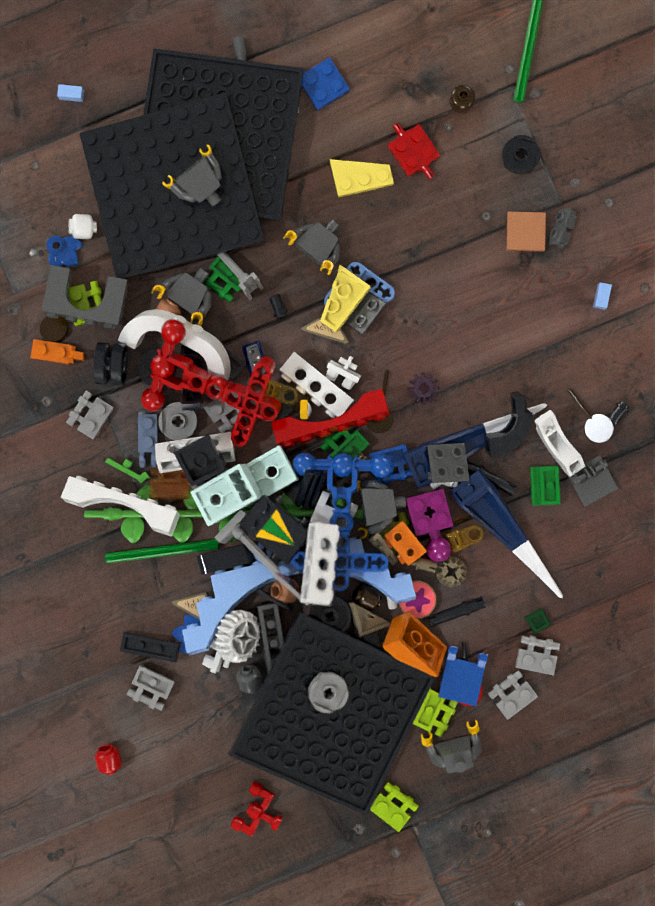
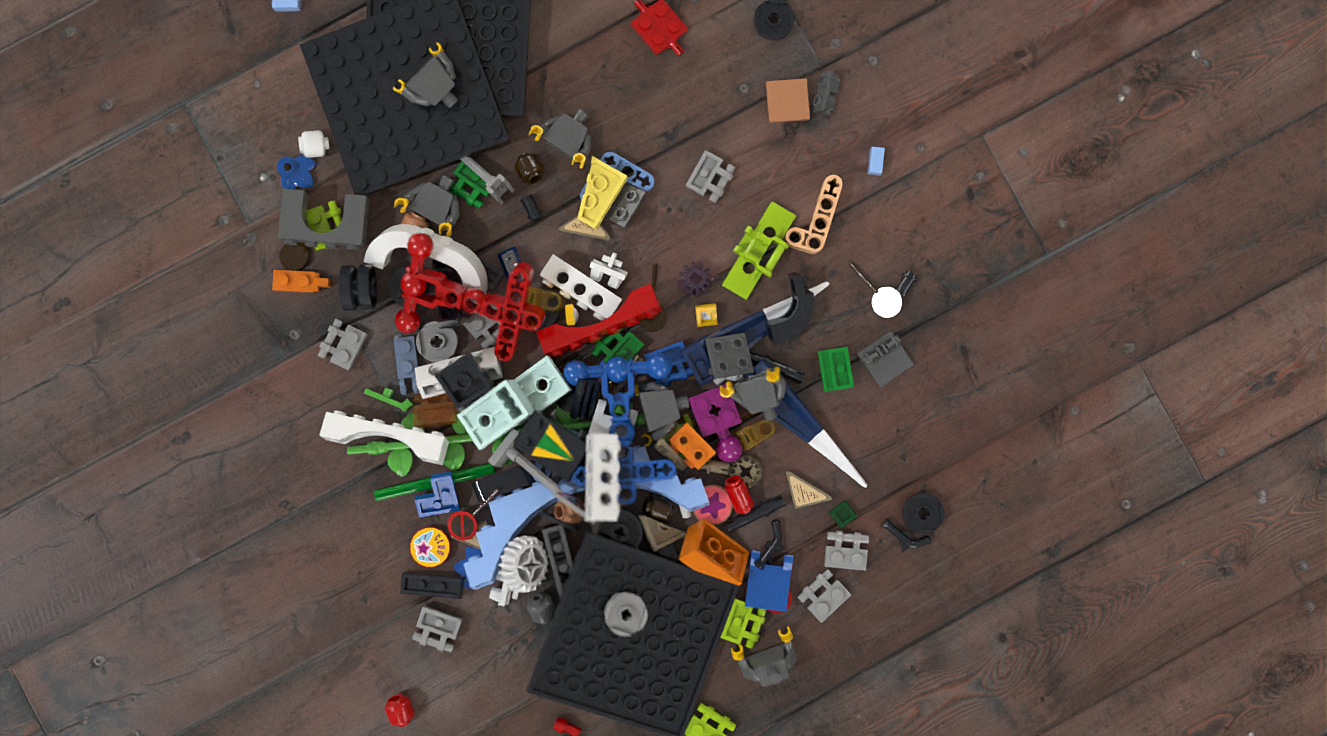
camera: 10 degrees left, 0 degrees up
(152, 611) = (430, 547): none -> tile
(168, 568) = (442, 500): none -> plate
(185, 594) = (463, 524): none -> piece
(280, 270) = (529, 168): none -> dark brown head
(359, 177) = (603, 61): light yellow wing -> none
(430, 423) = (706, 315): none -> yellow tile
(442, 290) = (704, 173): none -> light grey plate
(443, 592) = (738, 494): none -> red head
(469, 643) = (772, 545): none -> black piece
(472, 499) = (758, 392): none -> dark grey torso
(481, 363) = (753, 248): none -> lime piece
(503, 597) = (803, 493): none -> tile
(544, 339) = (818, 214): none -> light nougat beam
(557, 444) = (844, 323): white arch -> none
(592, 648) = (904, 536): none -> black piece
(619, 636) = (932, 520): none -> black plate

